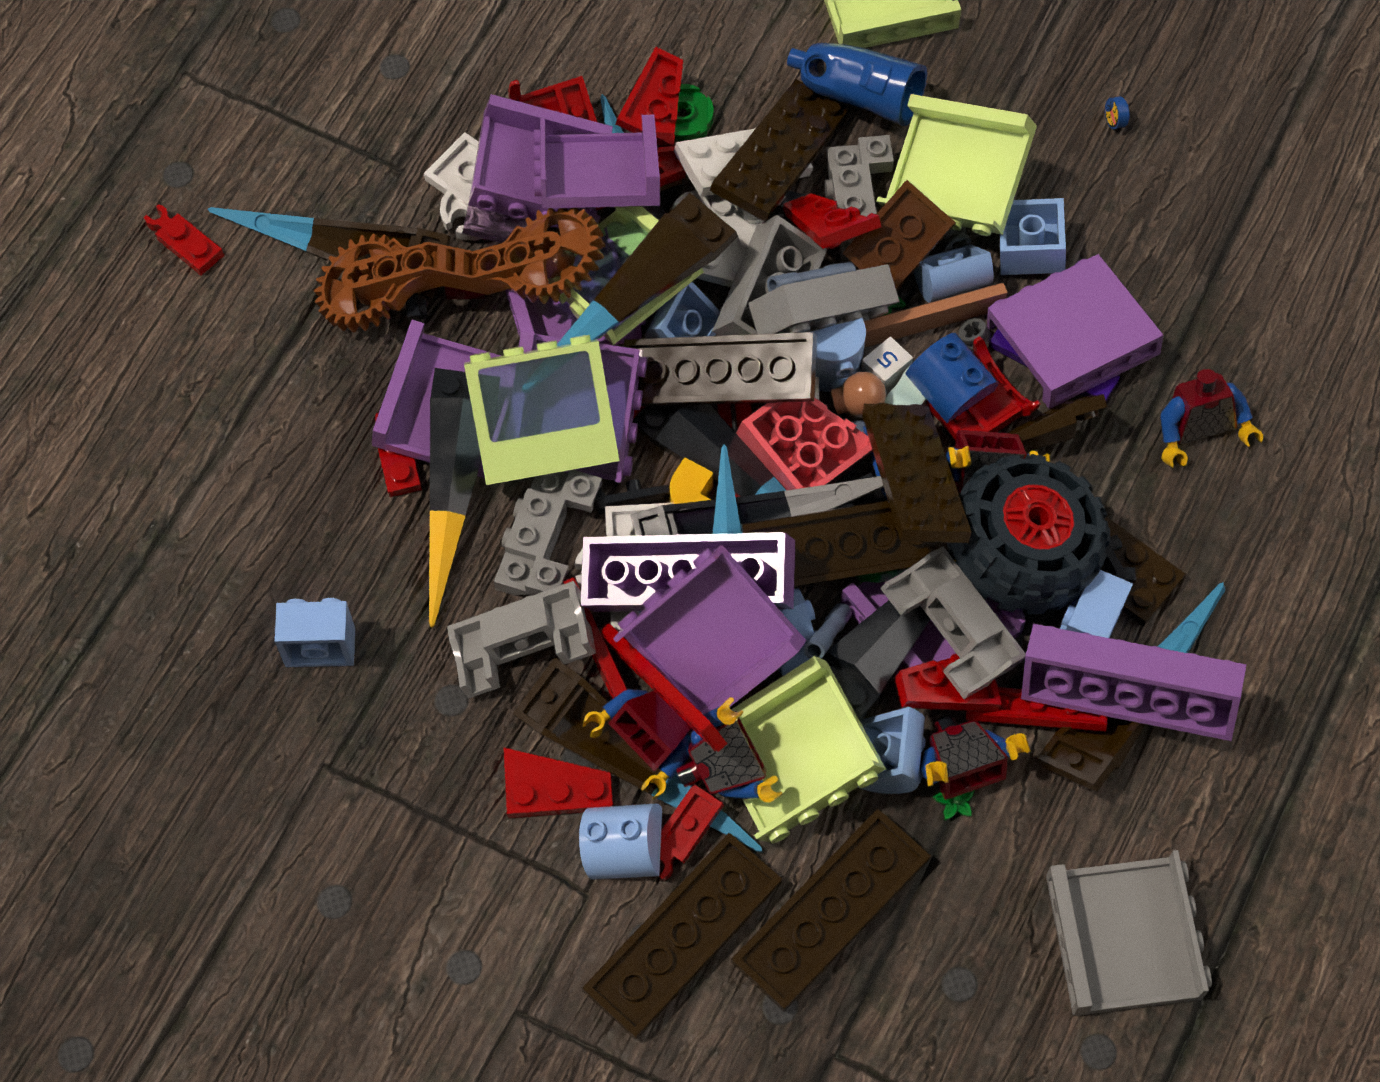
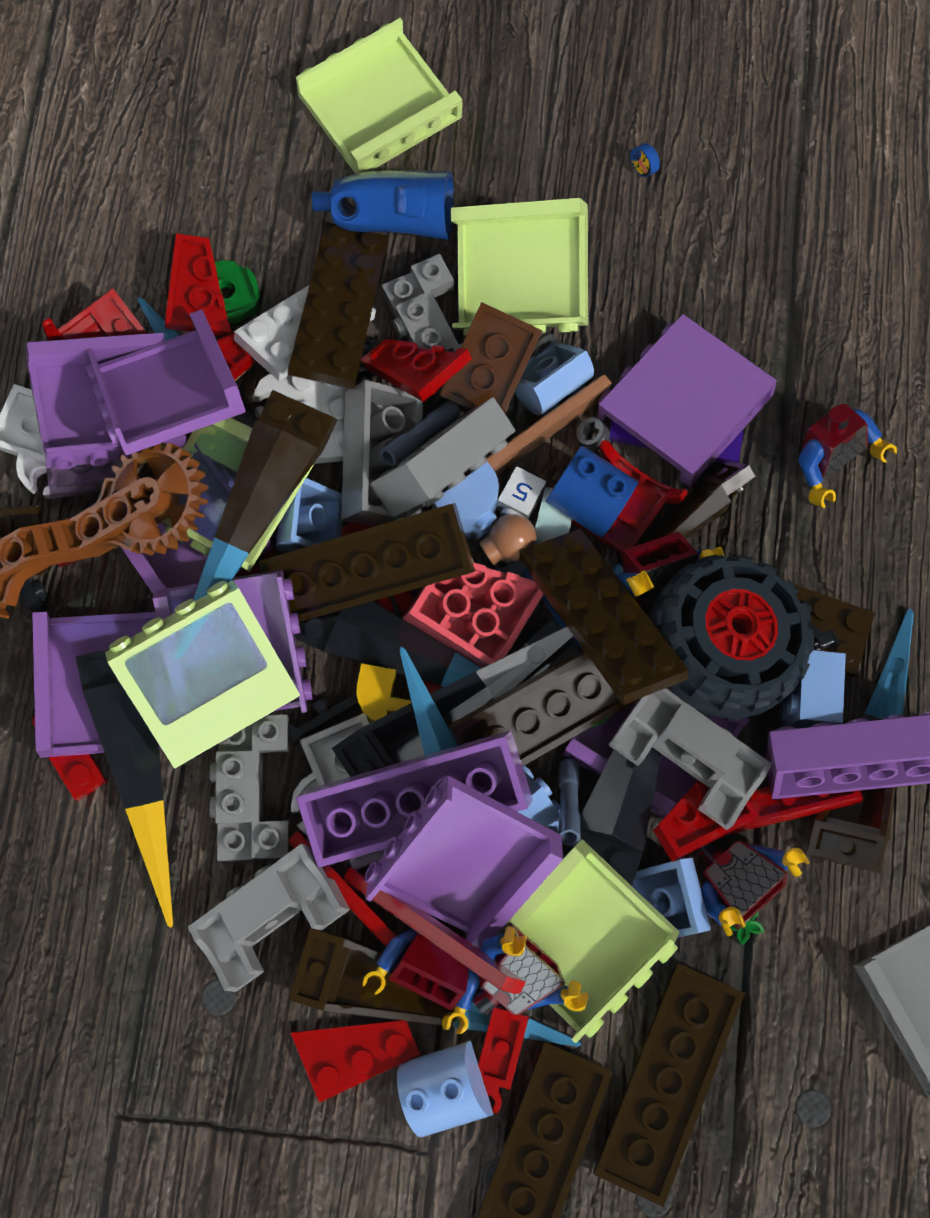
camera: 25 degrees left, 10 degrees up
(315, 633) = (53, 988): light blue brick -> none
(1034, 238) = (617, 316): light blue brick -> none

